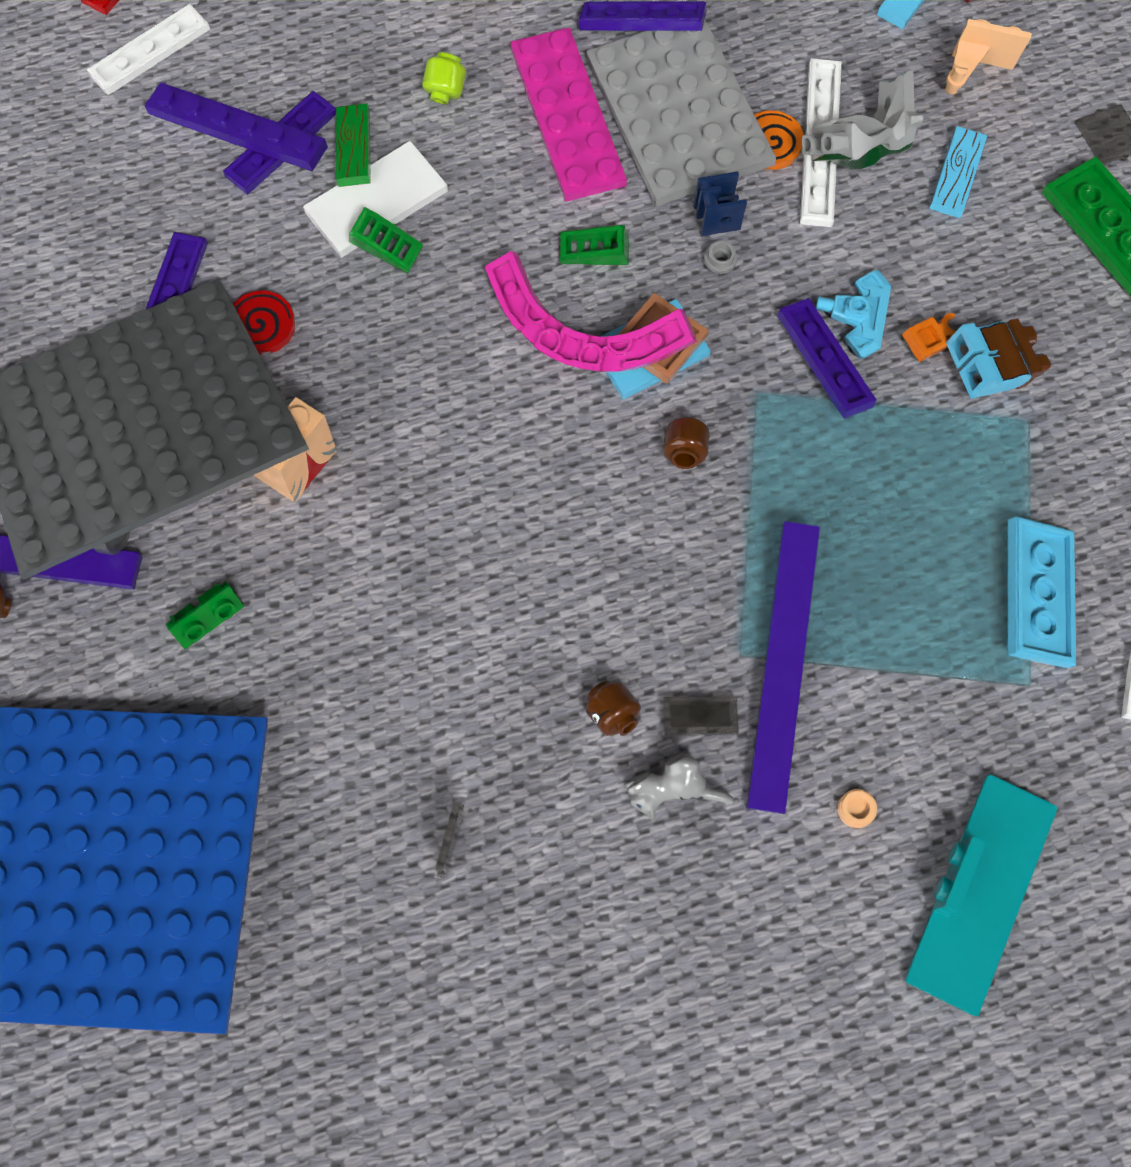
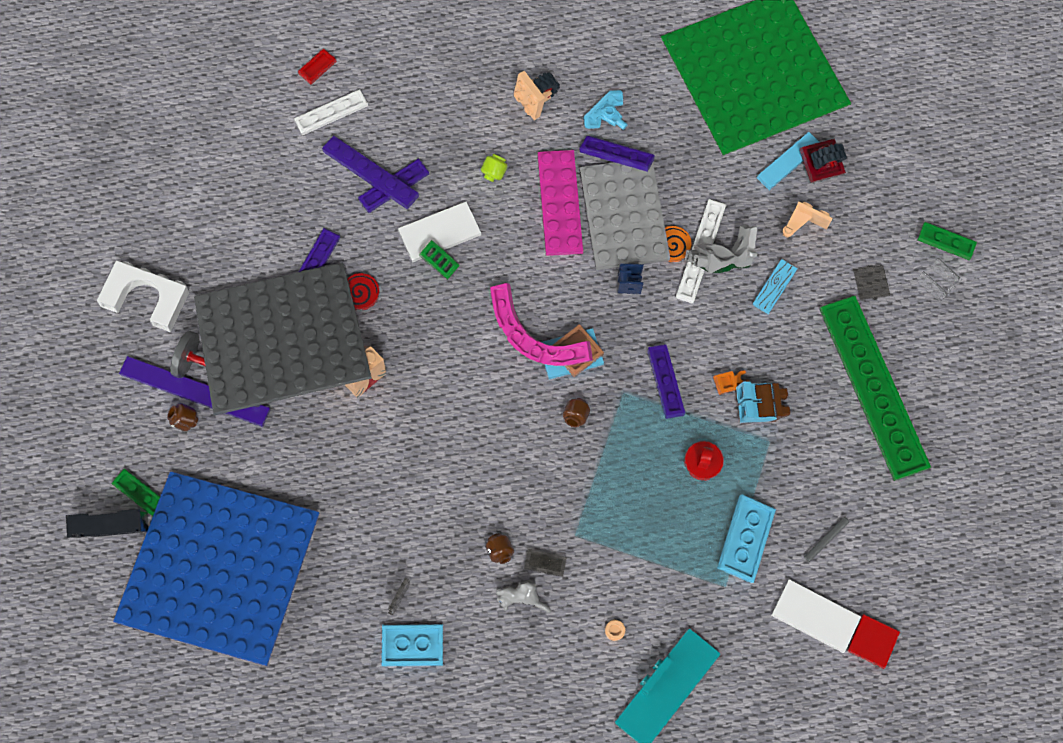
camera: 10 degrees right, 0 degrees up
(193, 623) = (305, 446): green hinge -> none
(353, 145) = (433, 197): green tile -> none
(495, 924) = (412, 645): none -> medium azure tile
(608, 256) = (554, 293): green slope -> none
(724, 250) = (624, 303): light grey plate -> none
(783, 668) = (595, 547): dark purple tile -> none
(863, 312) = (694, 359): medium azure piece -> none
(929, 475) = (703, 460): none -> red tile

